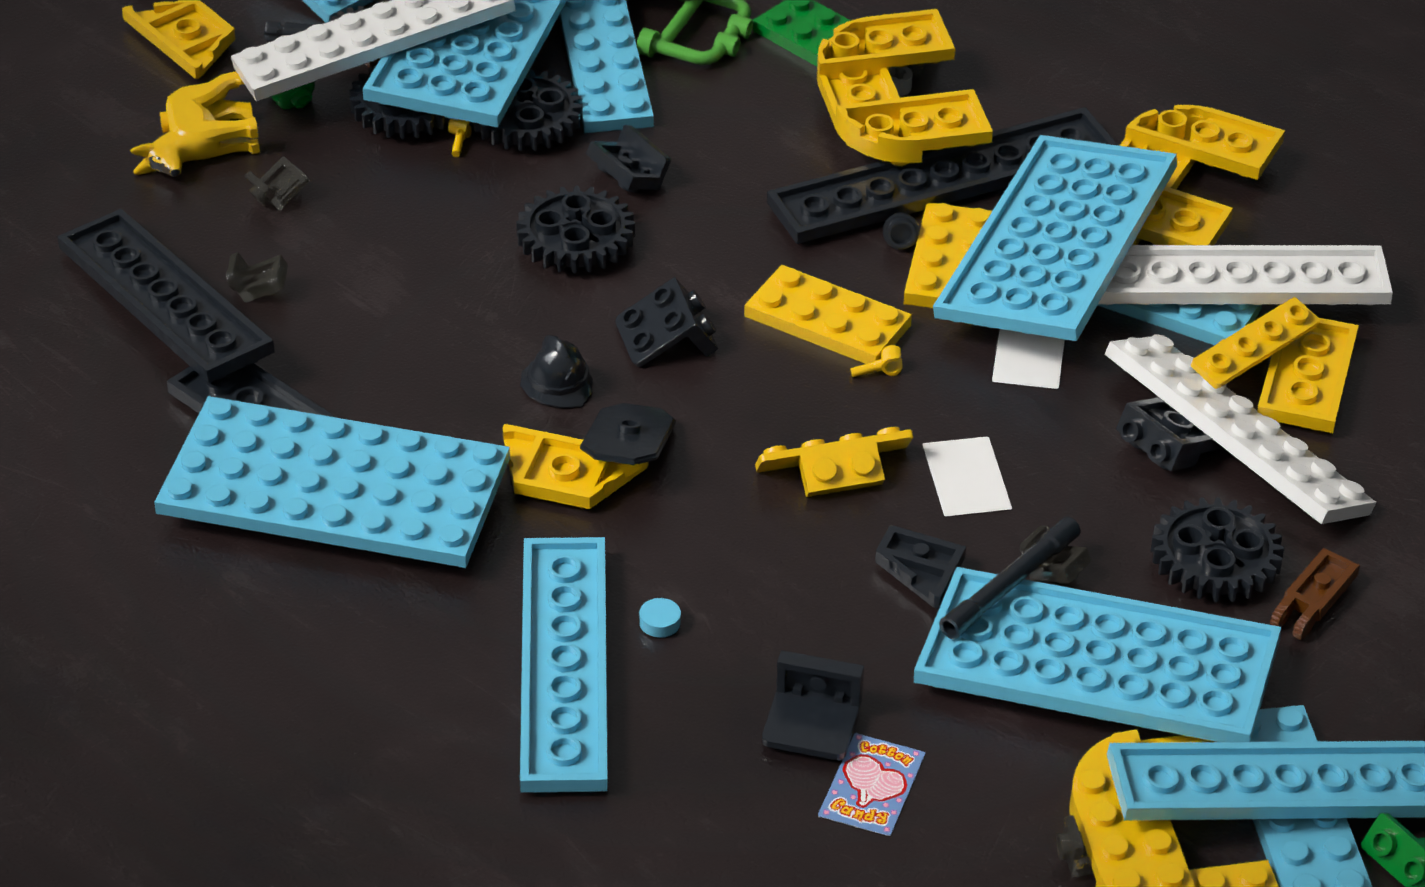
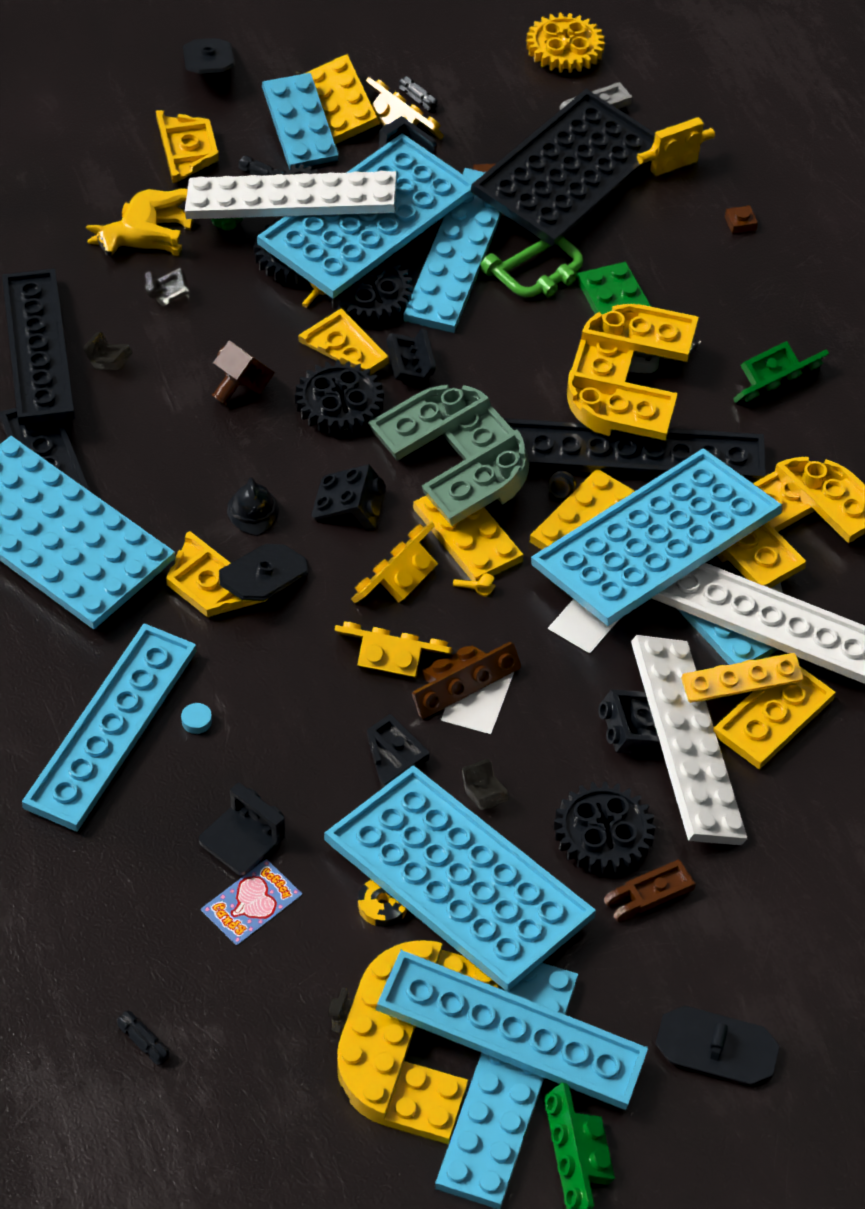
camera: 25 degrees right, 10 degrees up
(445, 233) = (240, 369): none -> reddish brown brick
(532, 170) = (344, 341): none -> yellow wing
(785, 375) = (404, 570): none -> yellow bracket
(814, 227) = (491, 450): none -> sand green plate
(940, 457) = (463, 675): none -> reddish brown bracket
(971, 609) = (391, 804): black piece -> none
(1023, 736) = (375, 912): none -> piece
(1041, 43) = (773, 366): none -> green bracket

